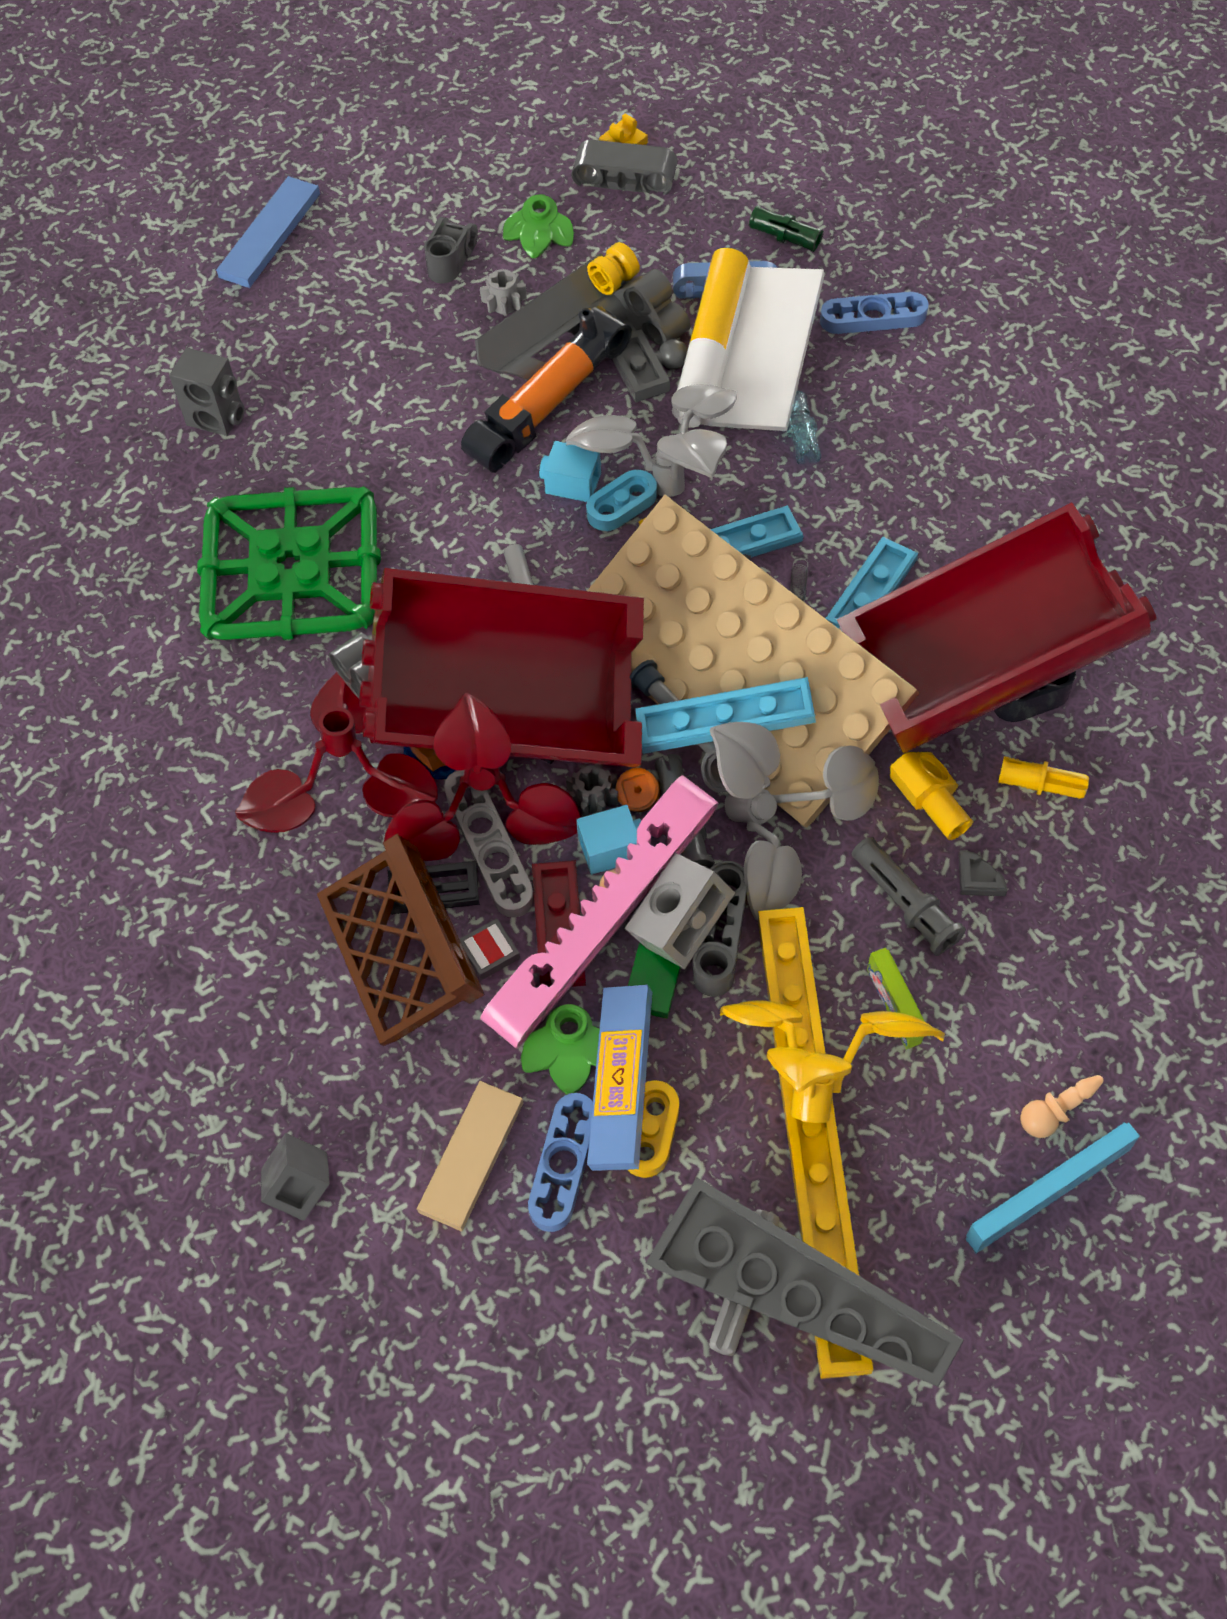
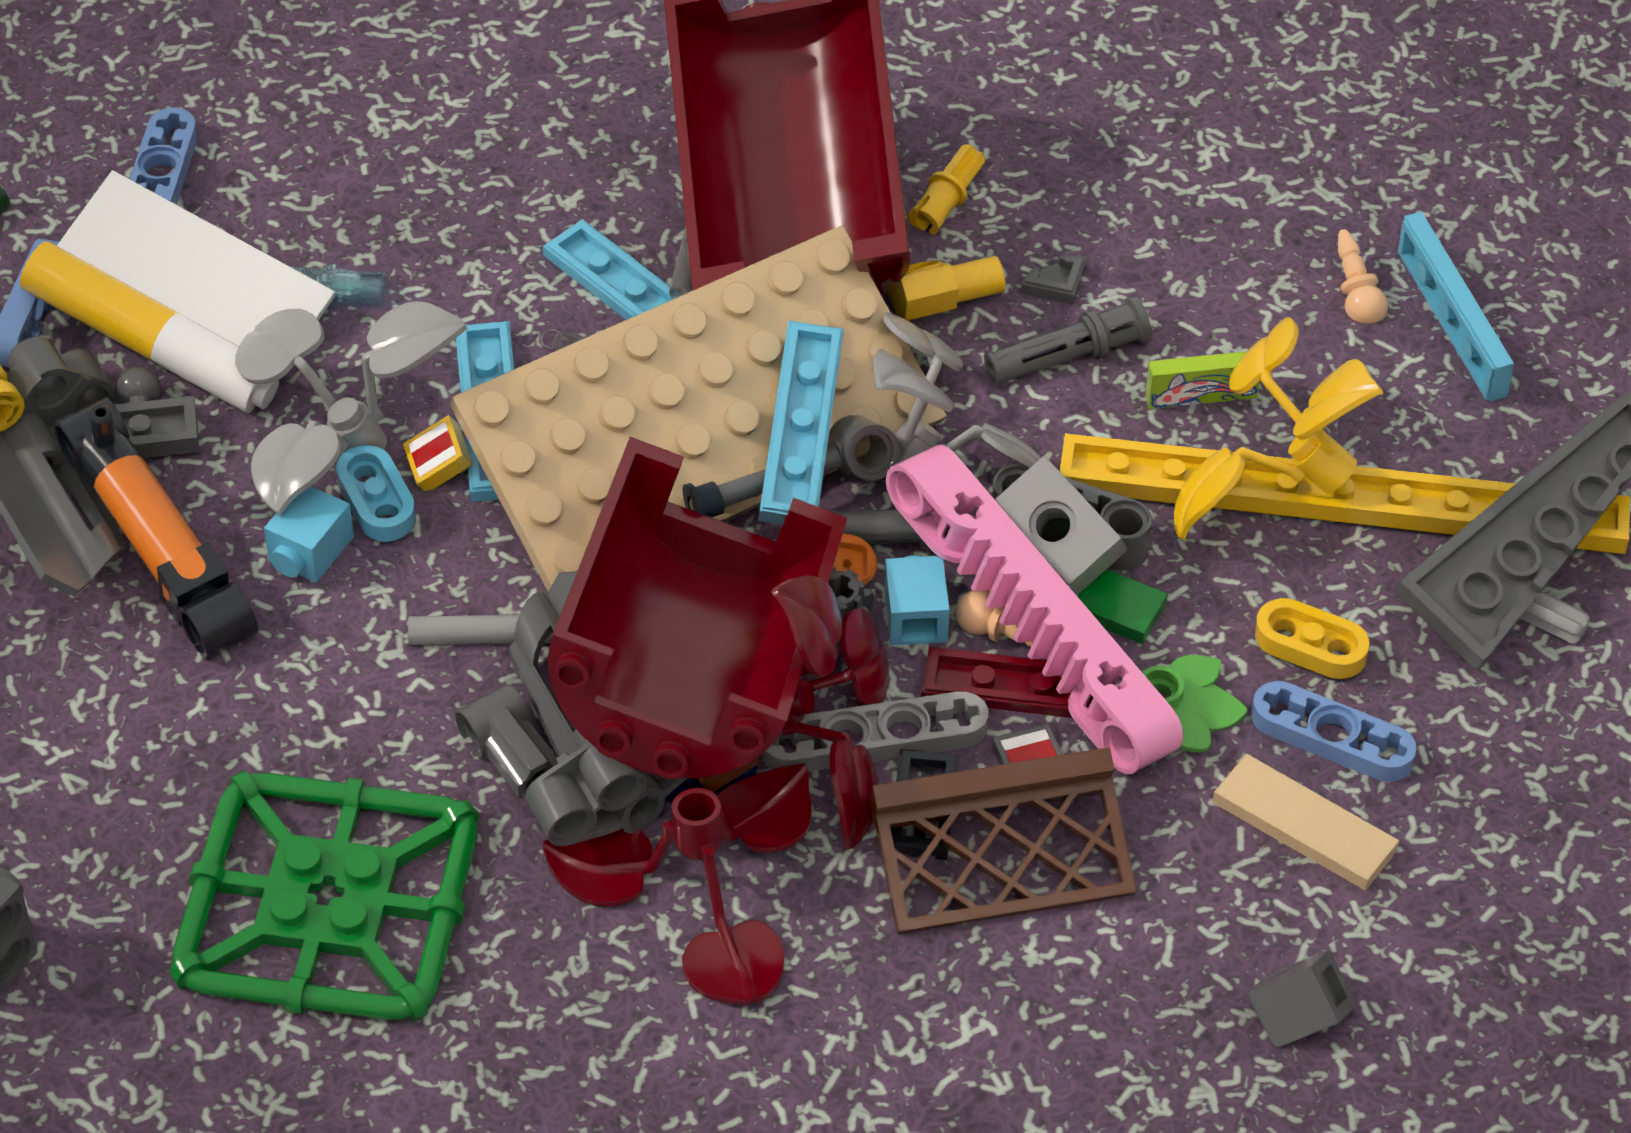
camera: 80 degrees left, 10 degrees down
(620, 1078) = (1248, 642): medium blue tile -> none

